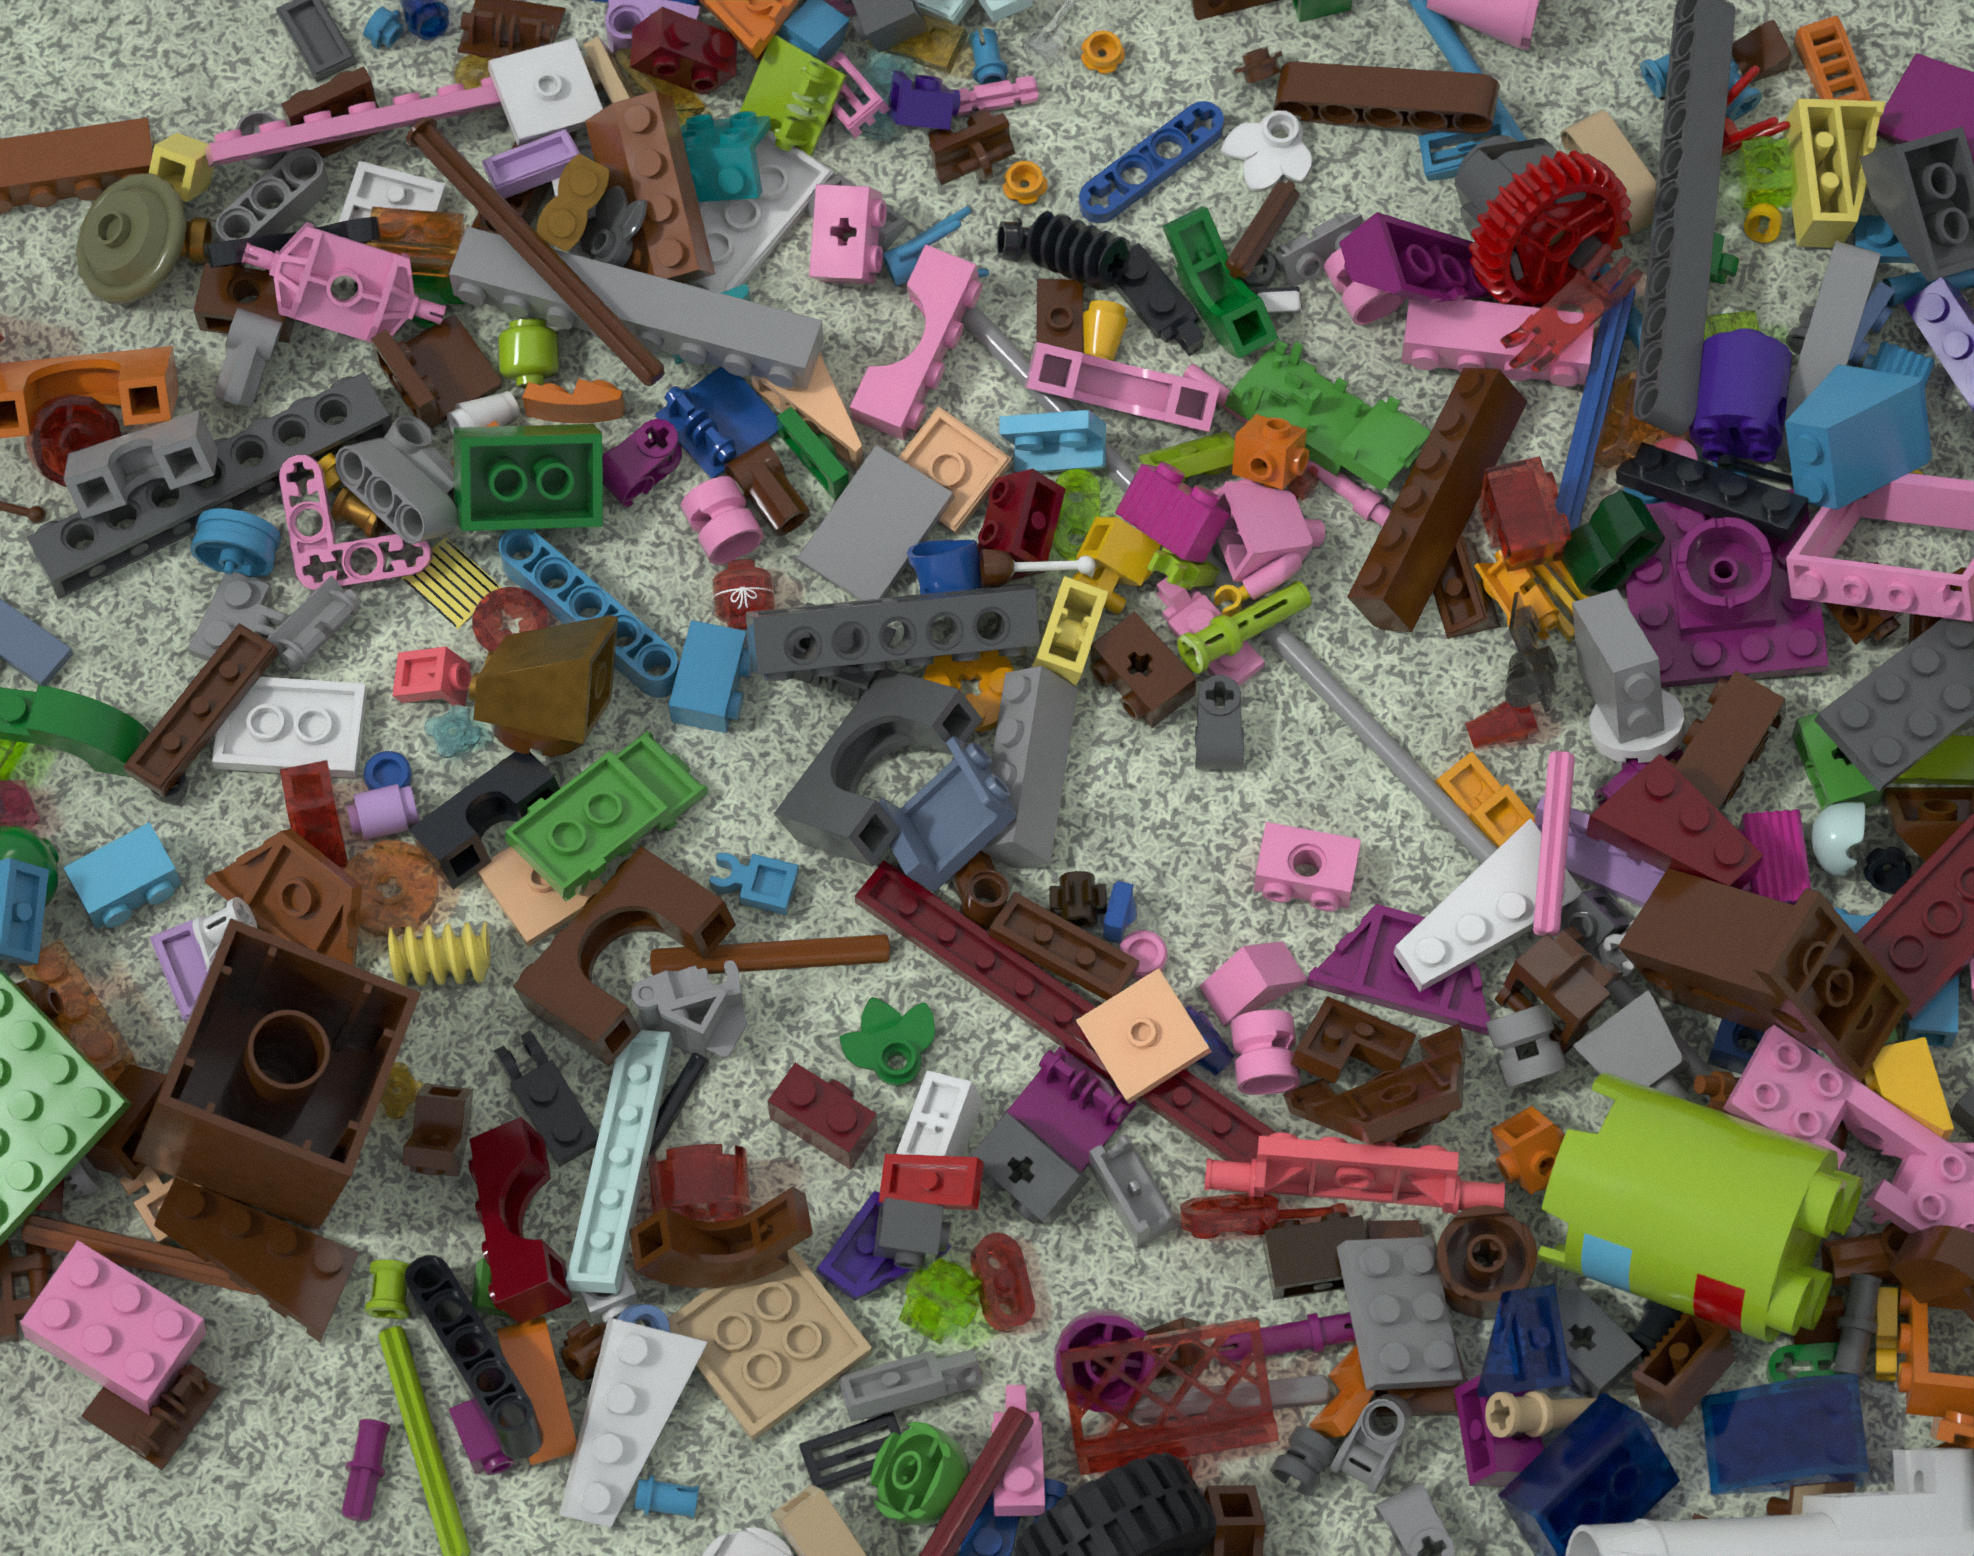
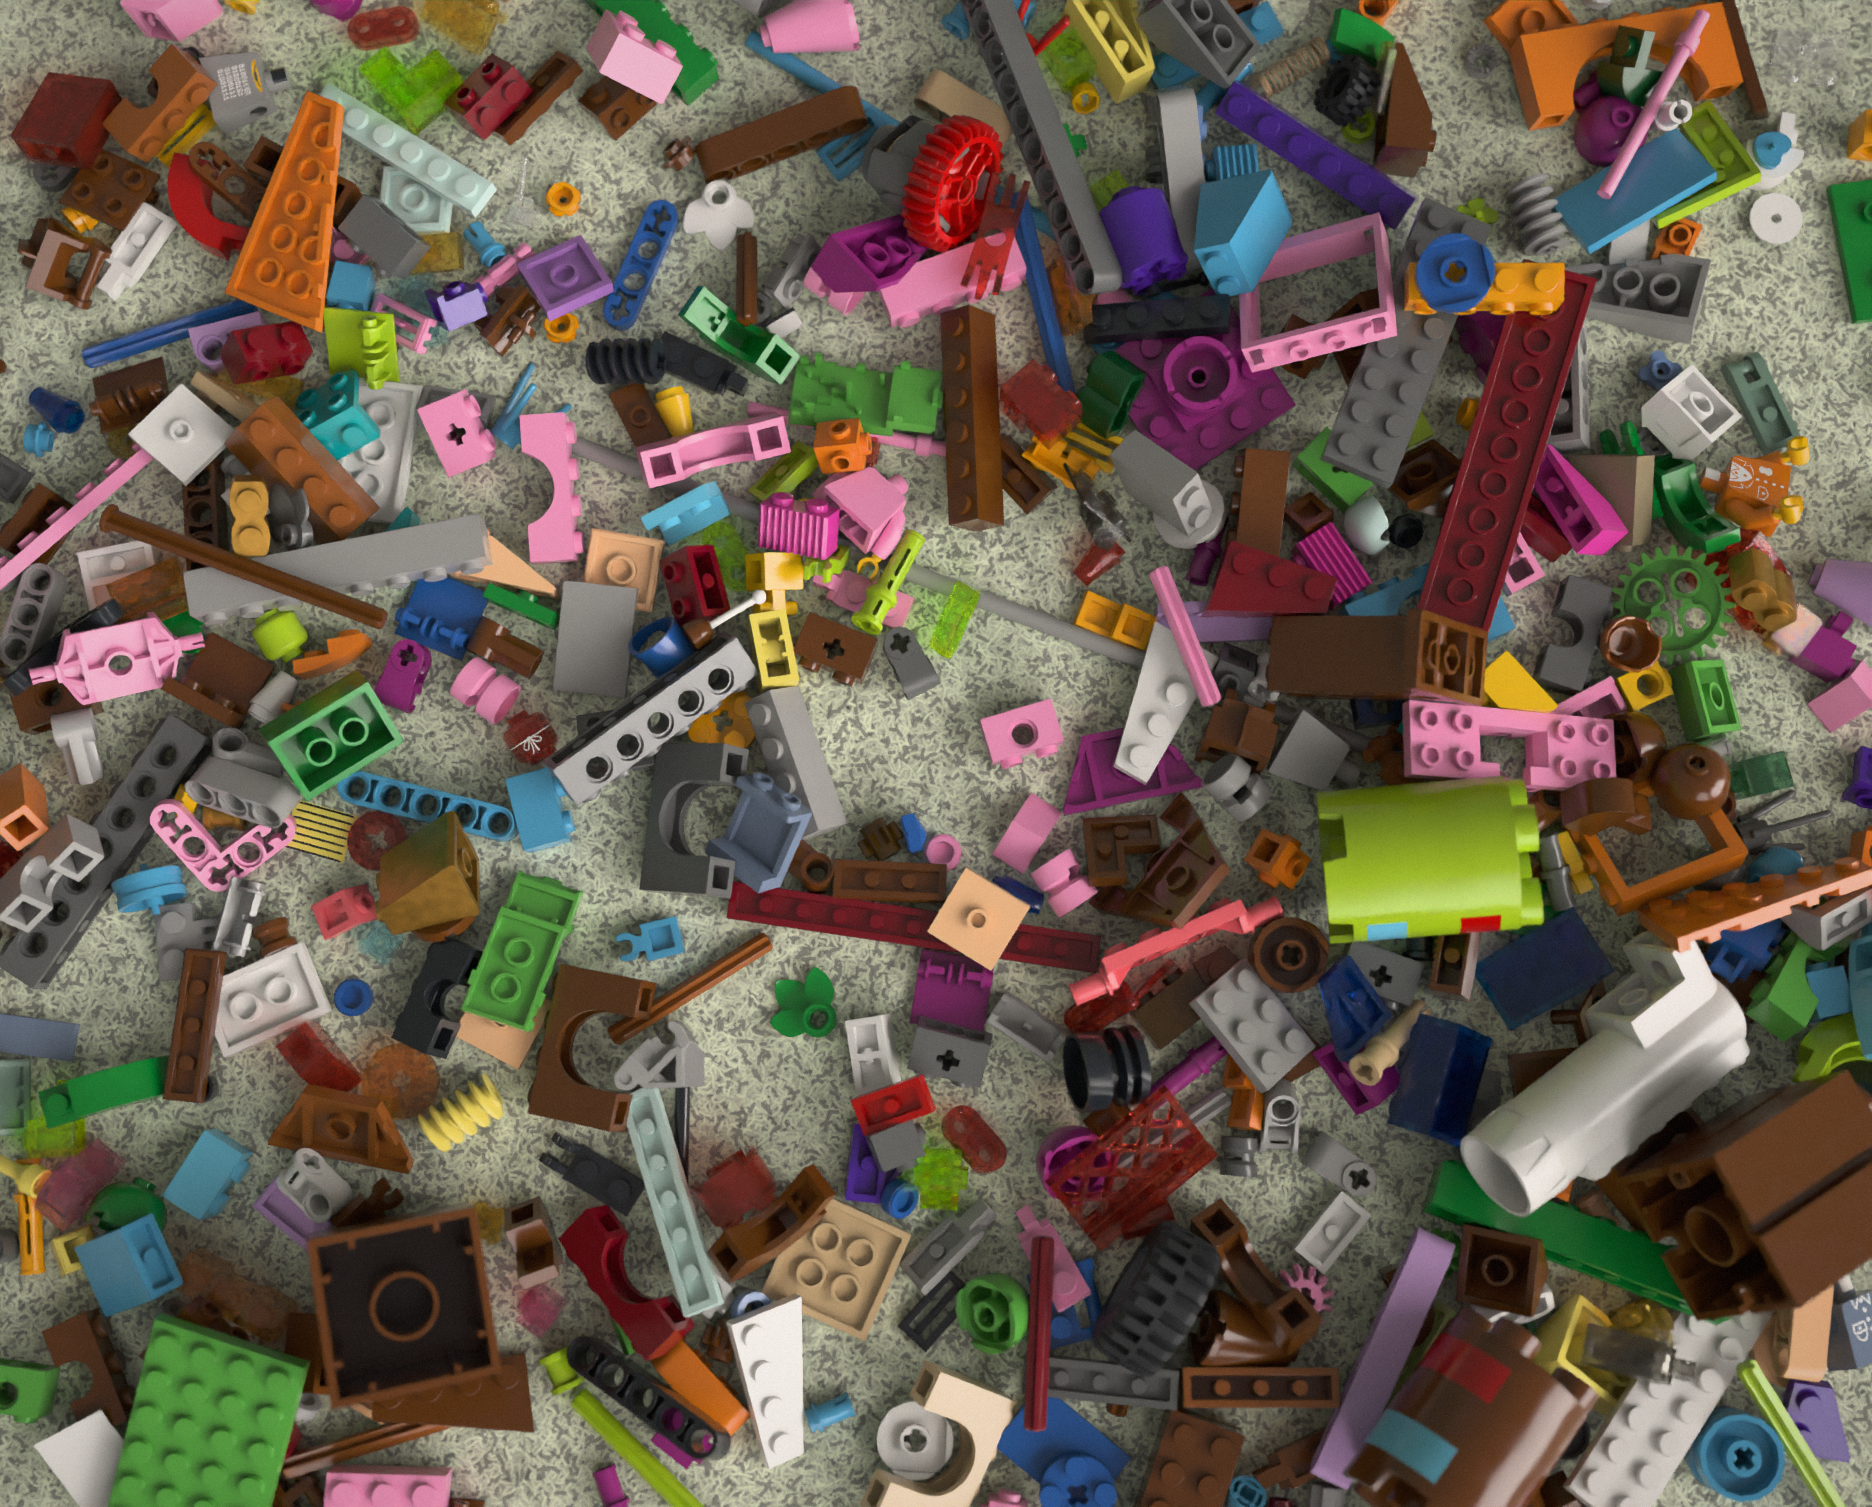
camera: 30 degrees left, 15 degrees up
(339, 661) = (273, 936): none -> reddish brown wheel
(383, 811) = (365, 1028): lavender brick -> none
(403, 1204) = (540, 1309): none -> clear pink brick
(530, 164) = (202, 496): lavender tile -> none
(823, 1115) = (790, 1087): dark red brick -> none
(879, 1302) = (899, 1198): none -> blue tile
(1012, 239) = (575, 373): black plate -> none
(1058, 132) = (565, 277): none -> medium lavender plate
(1190, 1267) = (1106, 1068): none -> black wheel
(1300, 707) = (955, 619): none -> clear neon green slope
(1778, 792) = (1308, 514): none -> reddish brown plate

